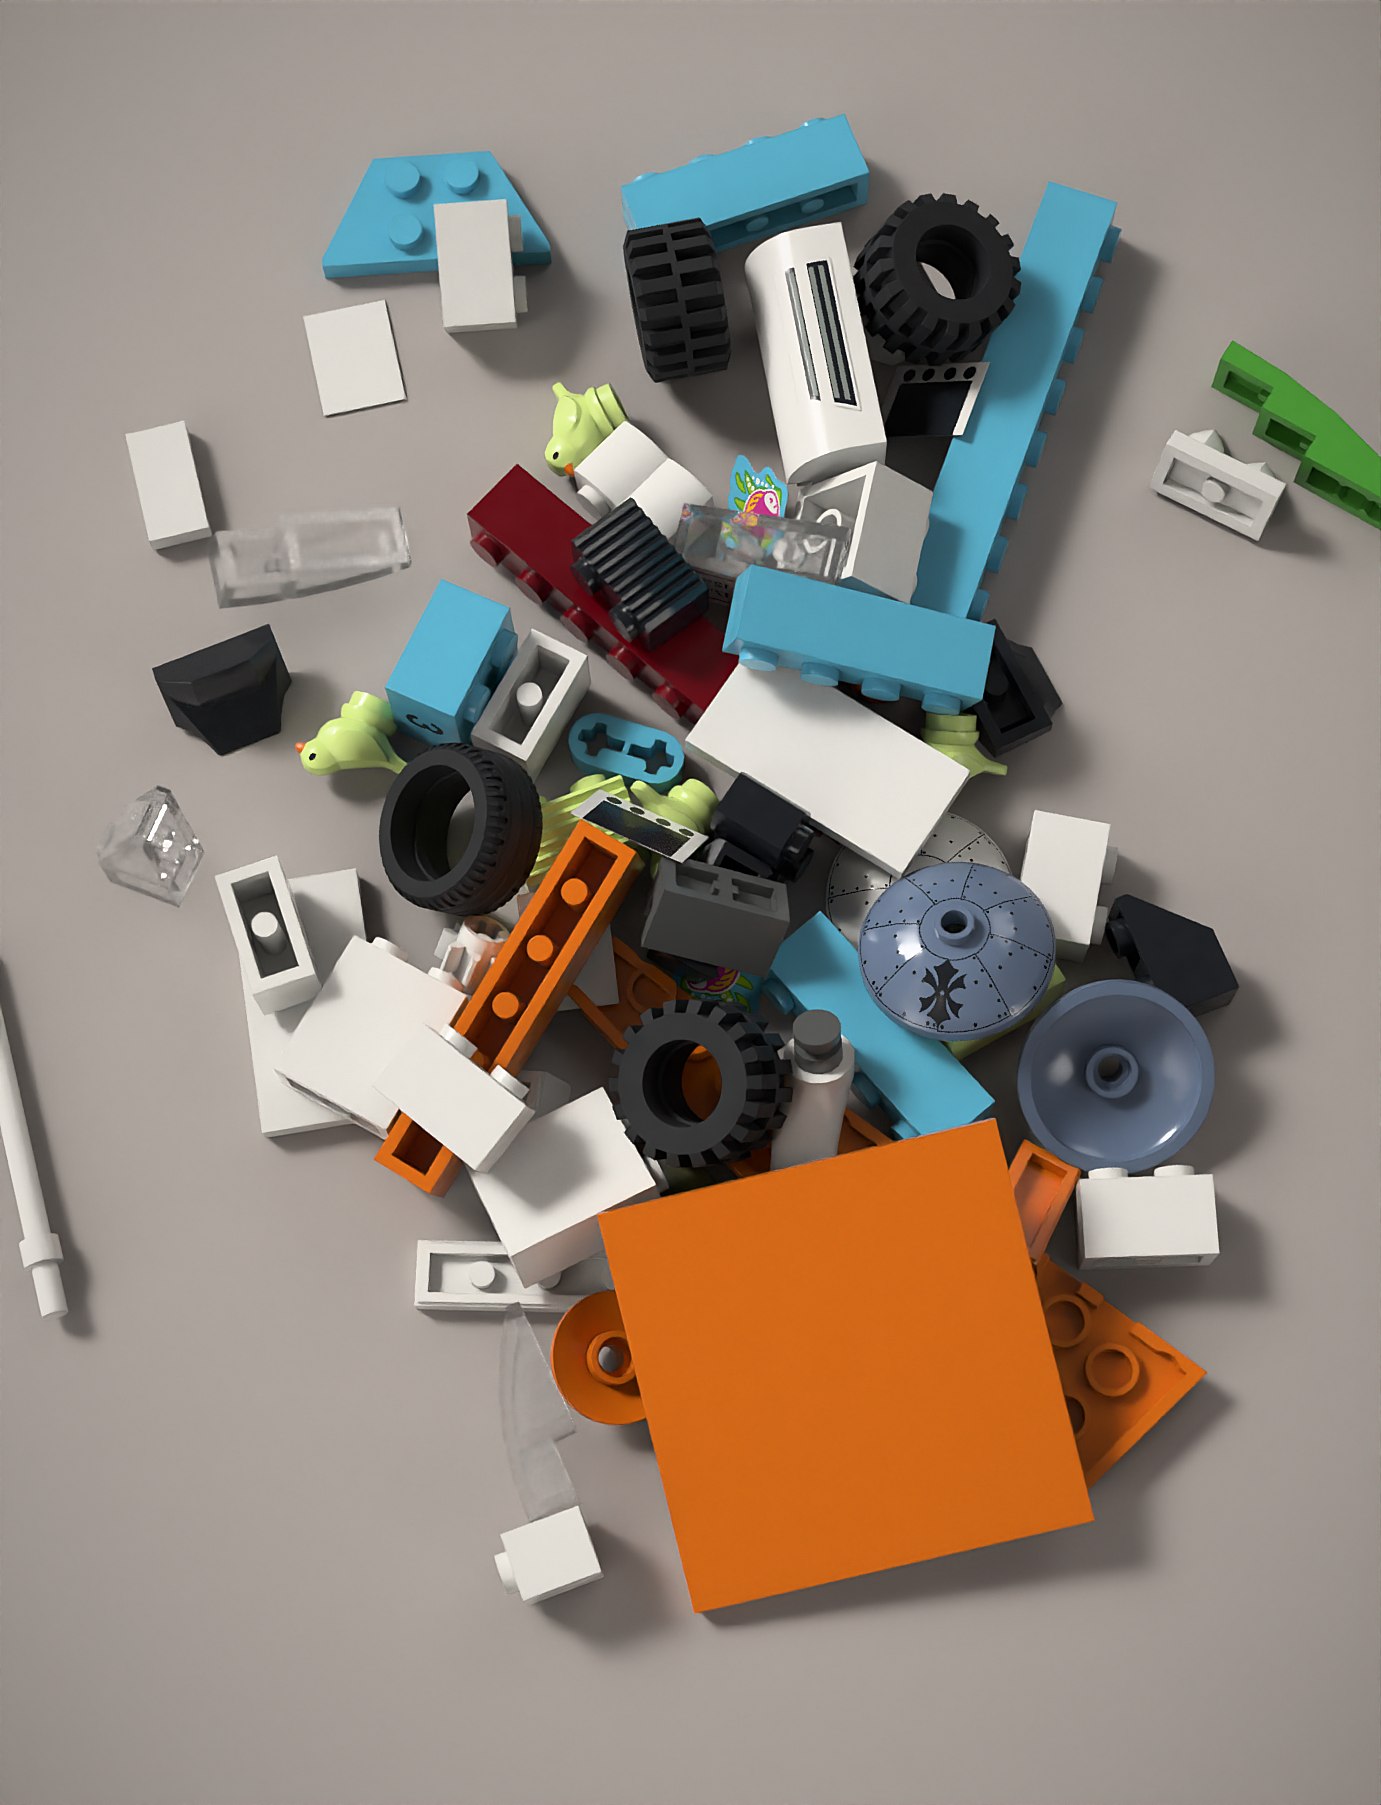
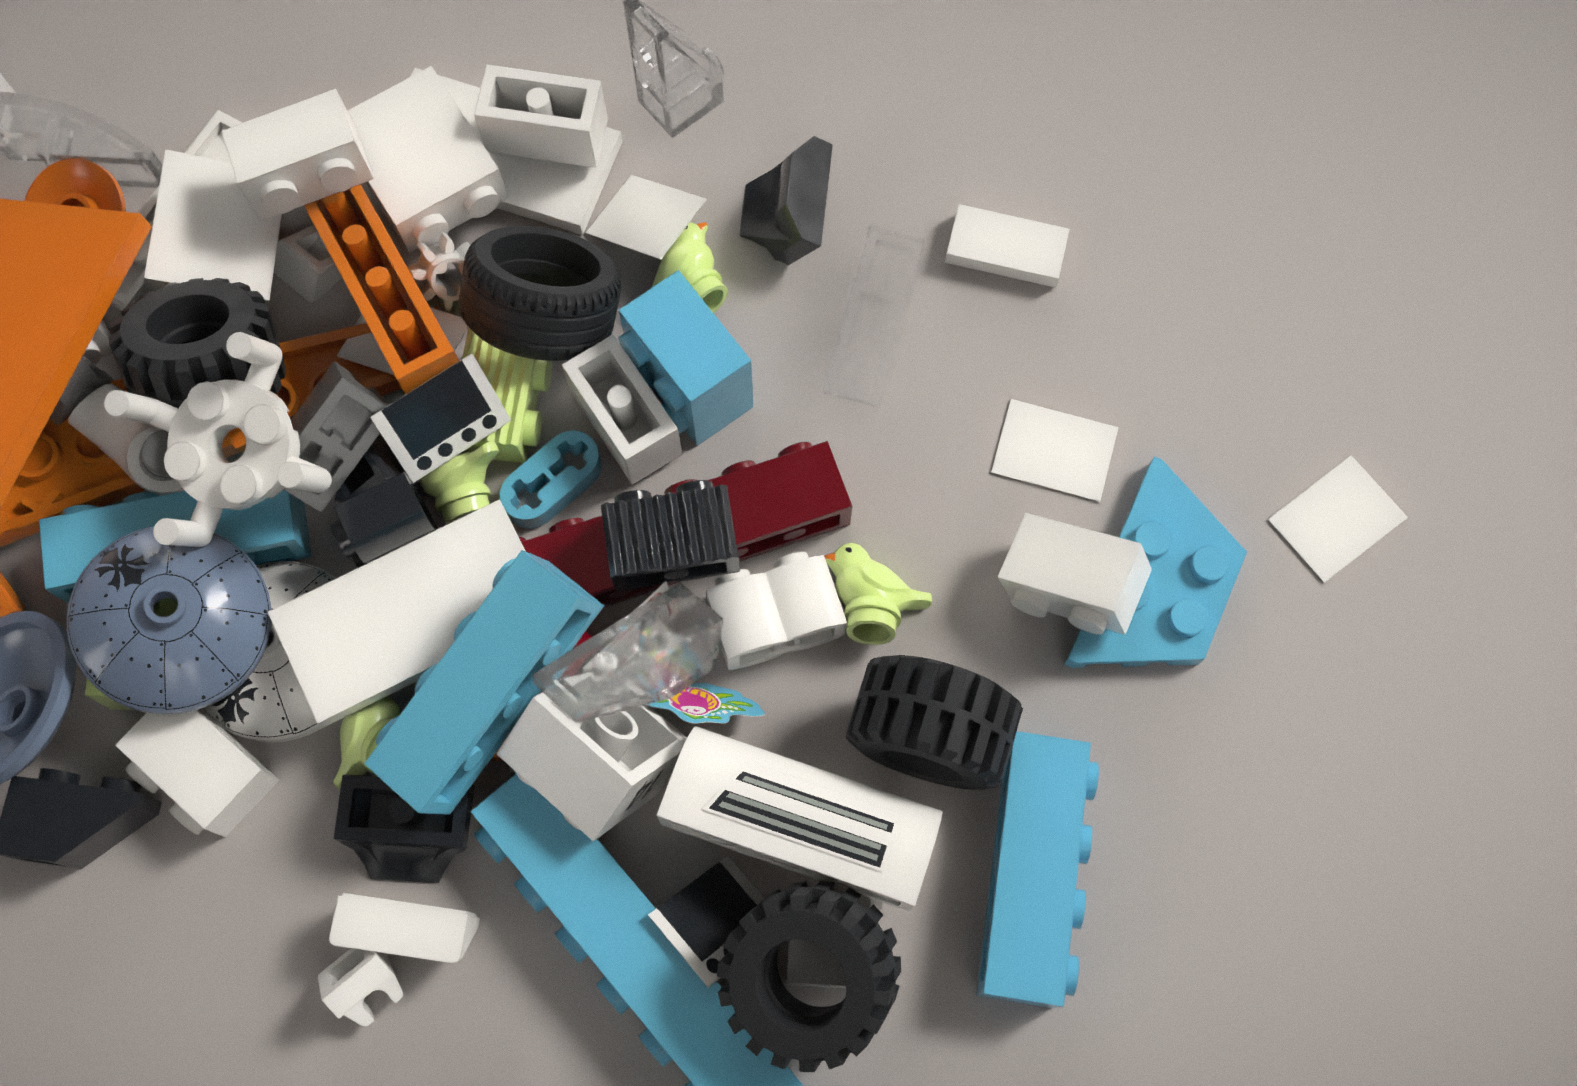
camera: 115 degrees right, 0 degrees up
(295, 112) = (1337, 518): none -> white sticker
(314, 810) = (646, 216): none -> white sticker
(808, 934) = (197, 436): none -> white plate
(1085, 632) = (402, 928): none -> white slope
(1146, 650) = (353, 978): none -> white tile

